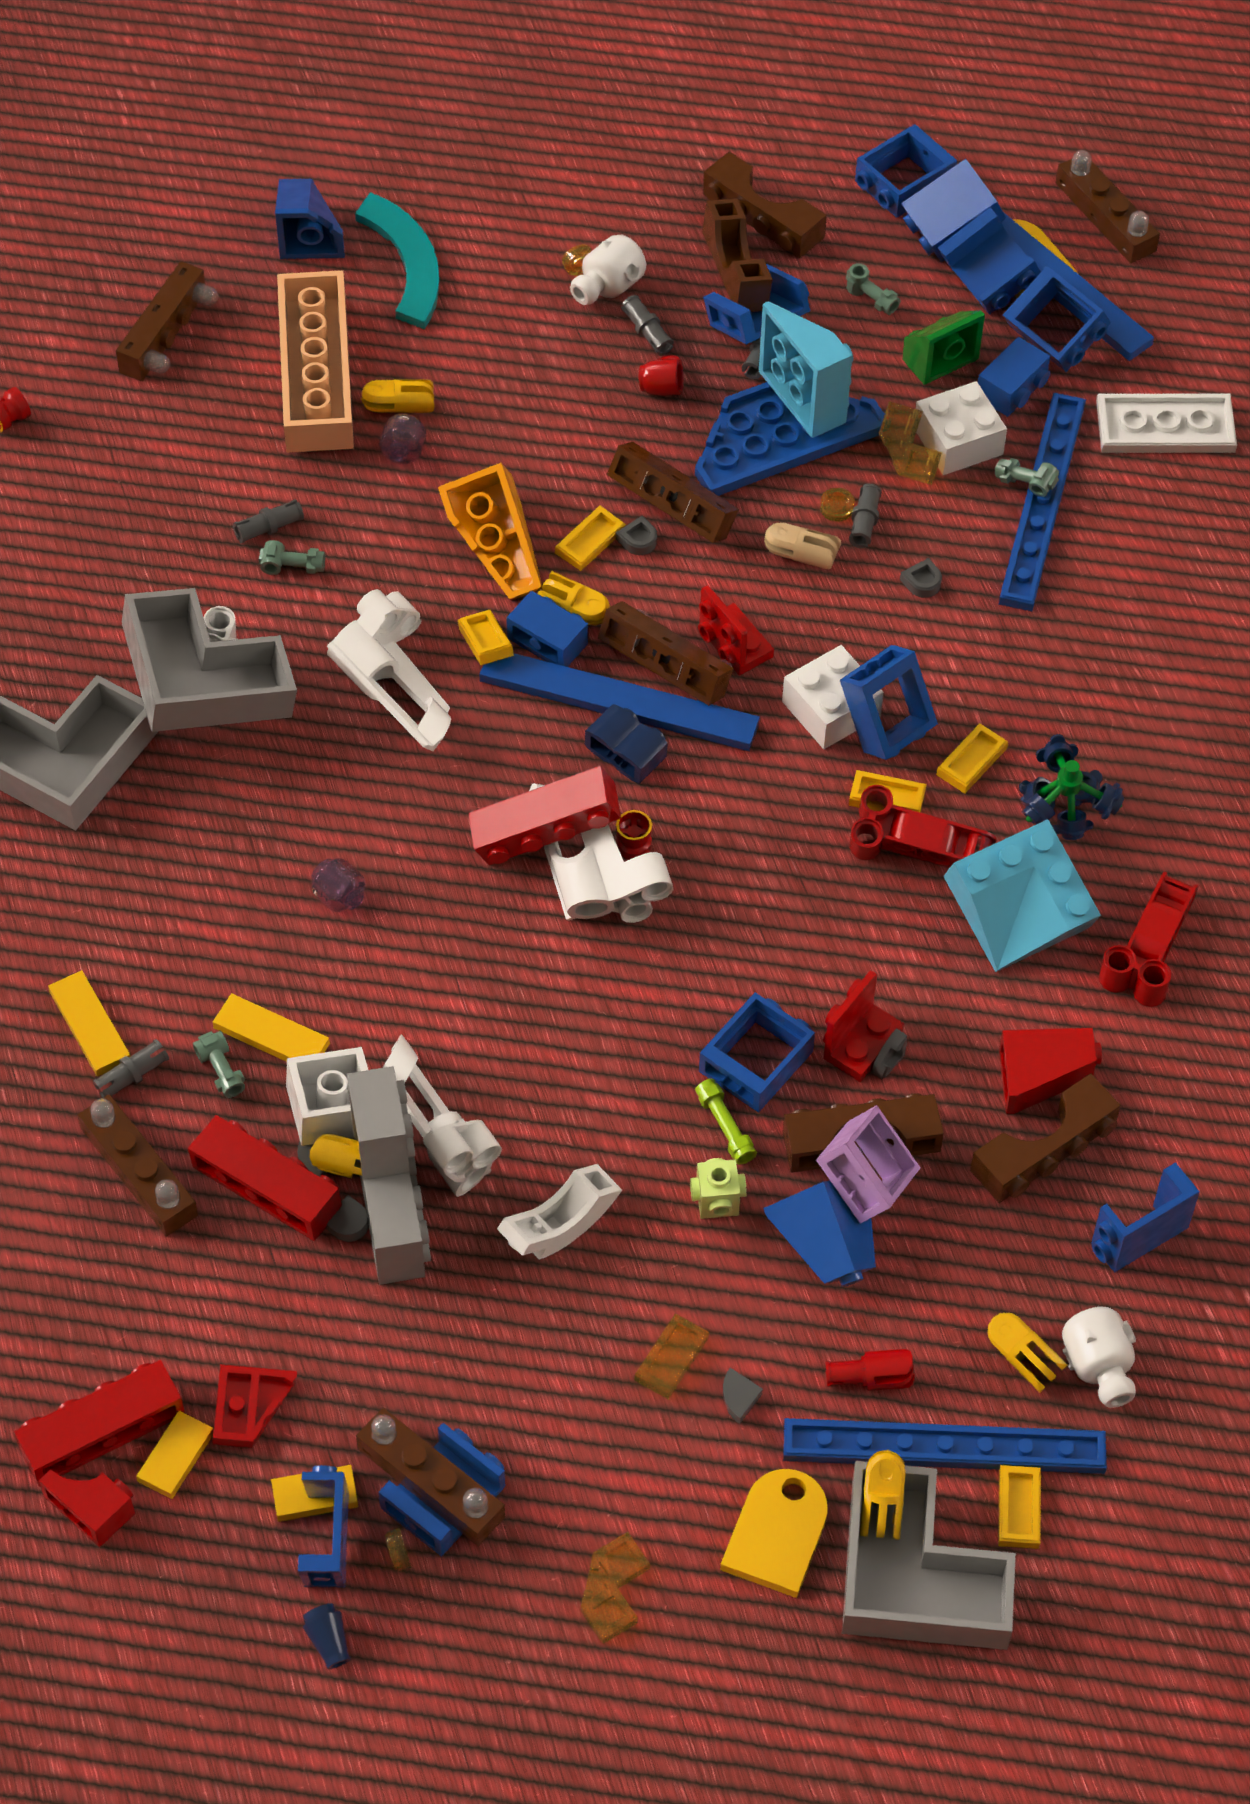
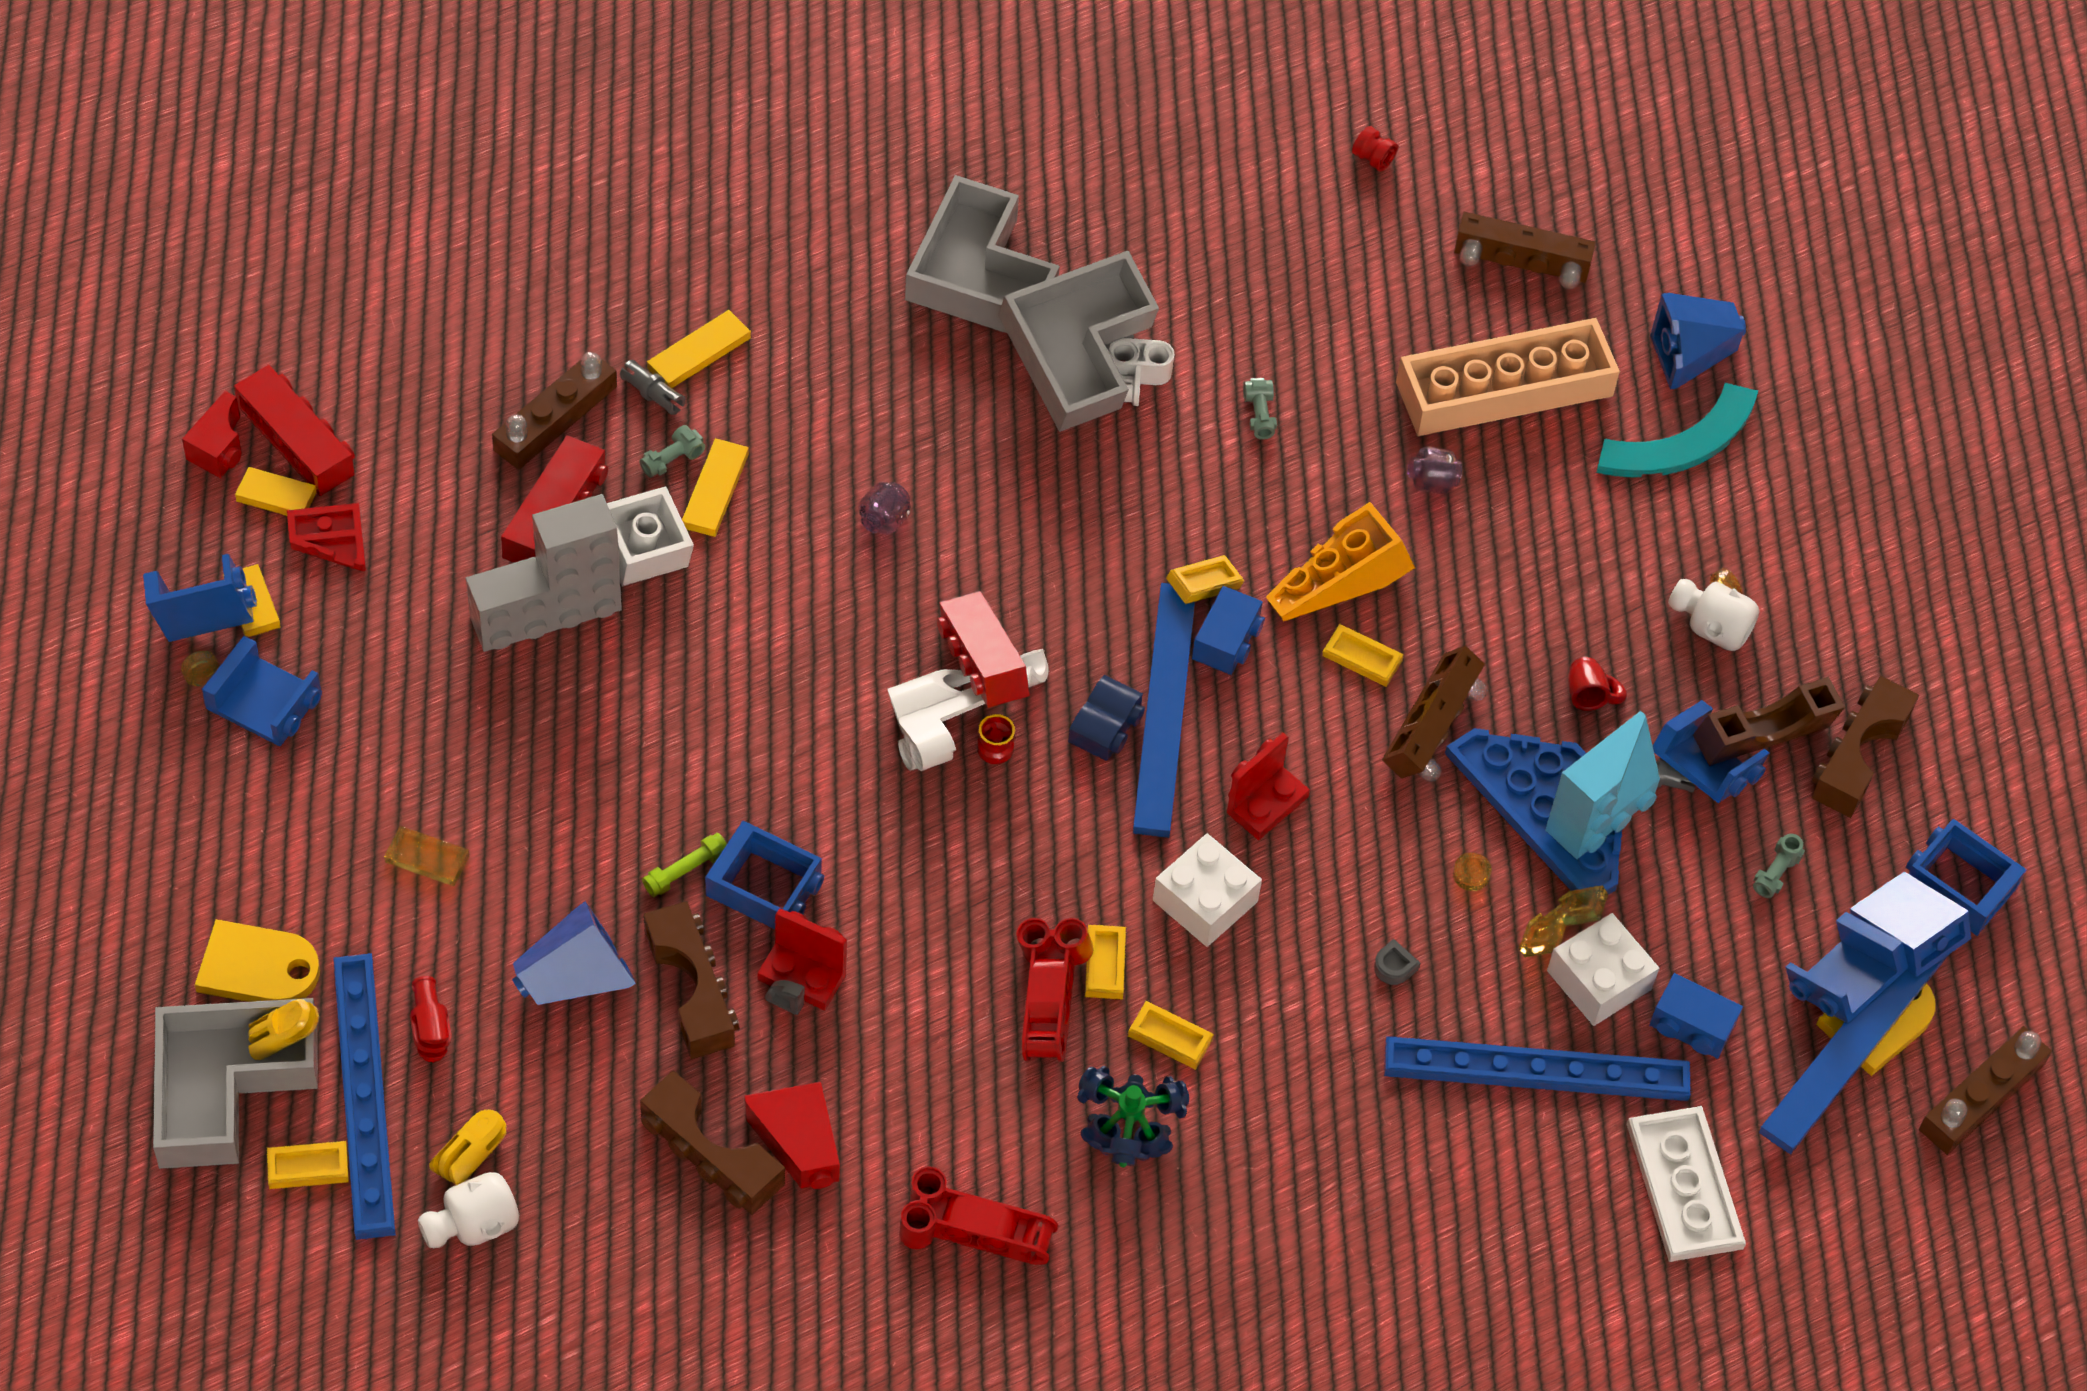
camera: 75 degrees right, 0 degrees up
(268, 521) = (1301, 379): dark grey pin -> none
(327, 1634) = (116, 629): dark blue cone -> none
(369, 652) = (1162, 489): white panel -> none
(399, 396) = (1491, 459): yellow arm -> none
(430, 1476) = (271, 678): reddish brown piece -> none
(456, 1147) = (604, 639): white panel -> none
(564, 1215) = (545, 737): white arch -> none
(575, 598) = (1273, 648): yellow arm -> none
(609, 1570) = (171, 836): clear yellow tile -> none
(638, 536) = (1377, 697): dark grey tile -> none
(647, 325) = (1659, 662): dark grey pin -> none
(665, 653) = (1222, 732): reddish brown piece -> none
(718, 1188) = (602, 862): yellowish green brick -> none
(739, 1394) = (393, 915): dark grey tile -> none
(802, 544) = (1401, 840): tan arm -> none
(854, 1175) = (602, 952): lavender window -> none
(865, 515) = (1459, 896): dark grey pin -> none
(871, 677) = (1214, 904): blue window -> none
(944, 345) = (1713, 939): green slope -> none
(1021, 895) = (990, 1083): medium azure slope -> none
(1036, 297) = (1789, 1013): blue window -> none
(1039, 481) = (1552, 1053): sand green bar -> none
(1172, 1215) = (639, 1261): blue panel -> none

